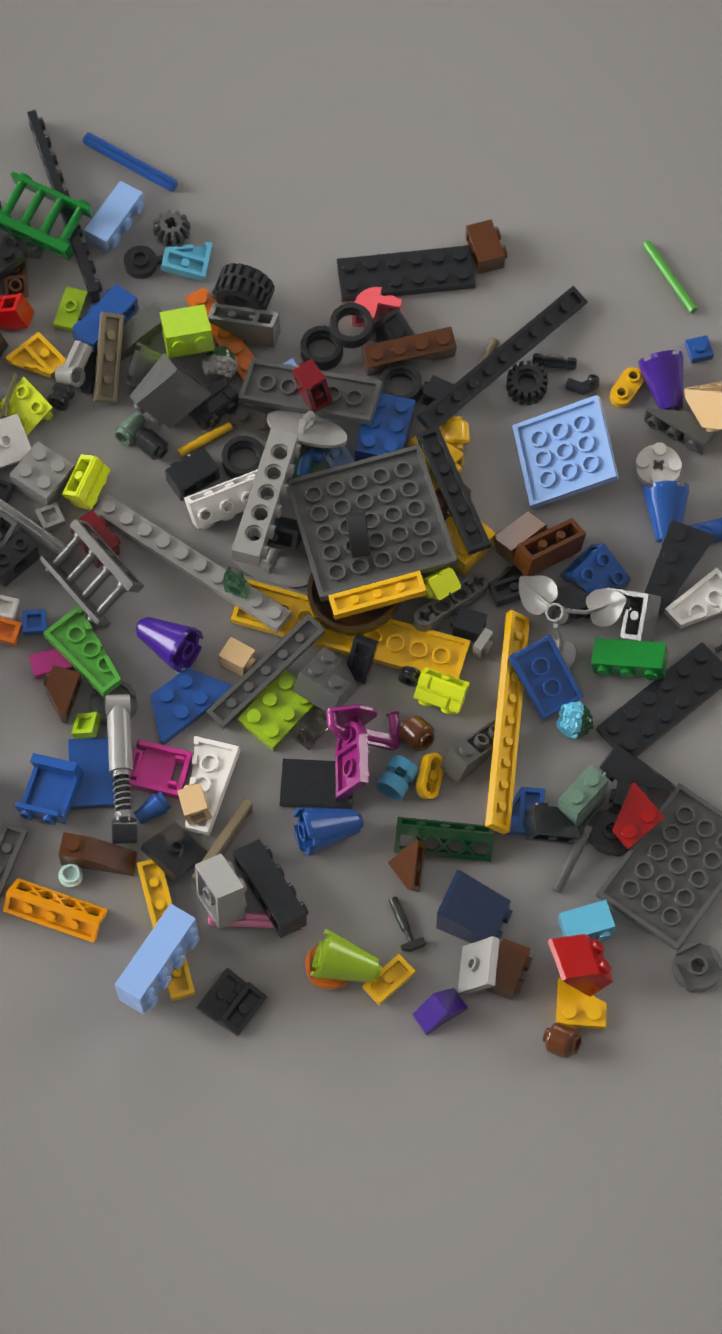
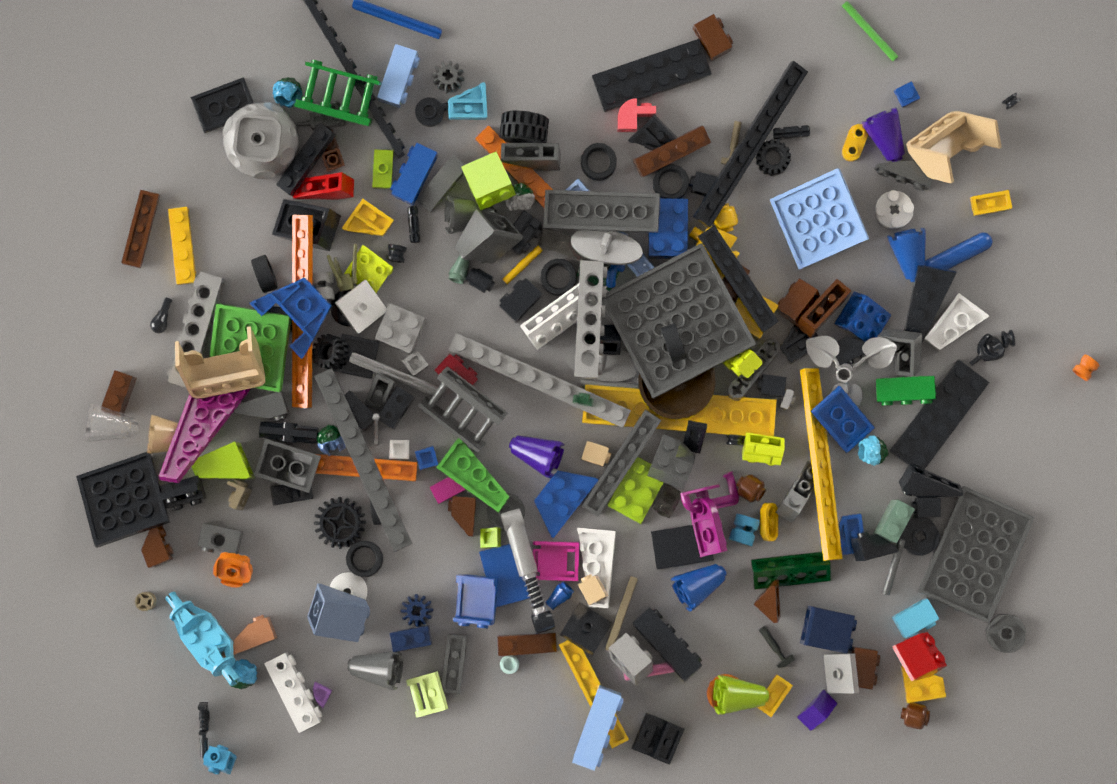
camera: 10 degrees left, 20 degrees up
(53, 911) = (504, 698): light orange fence -> none
(72, 371) = (399, 230): light grey piece -> none
(86, 482) = (437, 328): neon yellow brick -> none
(108, 358) = (427, 211): dark tan tile -> none
(312, 385) = (605, 214): dark red brick -> none
(351, 341) = (635, 142): black tyre -> none
(377, 595) = (698, 385): yellow plate -> none
(584, 387) = (821, 150): black arm -> none
(636, 817) = (938, 526): red wing -> none

